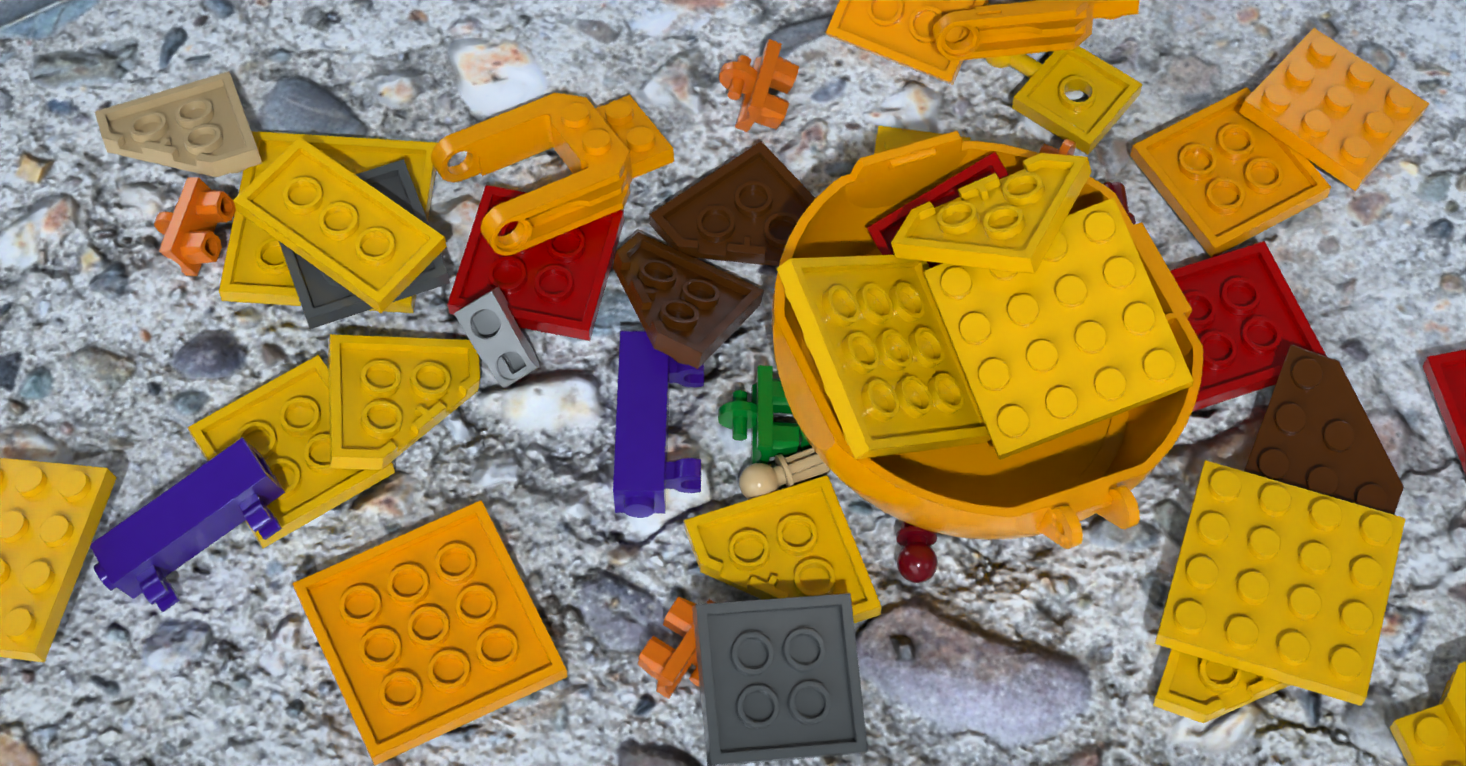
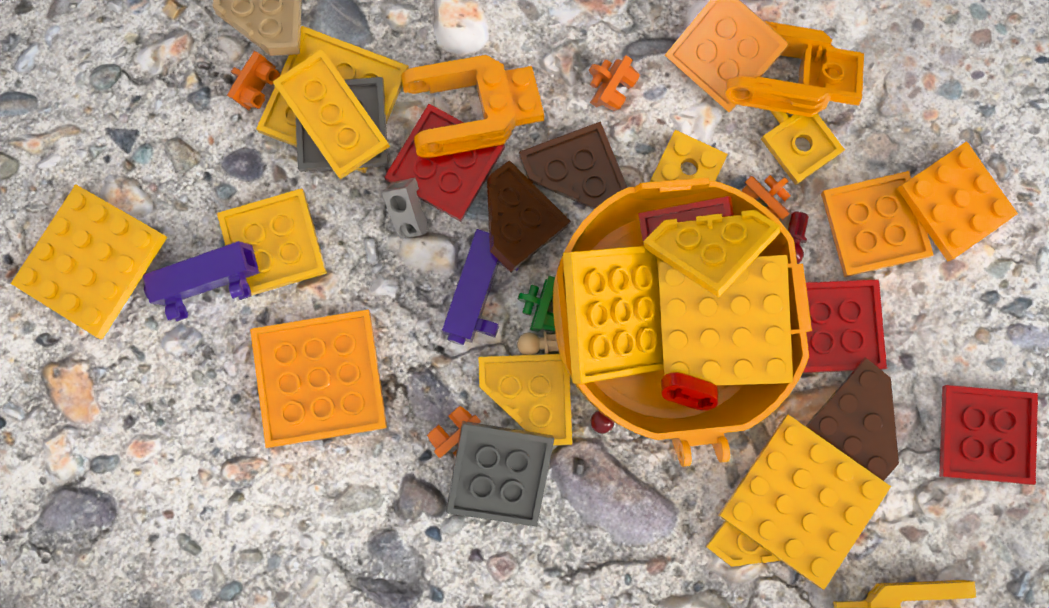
camera: 20 degrees right, 20 degrees up
(392, 393) = (335, 228): yellow plate -> none
(1041, 439) = (689, 391): none -> red beam

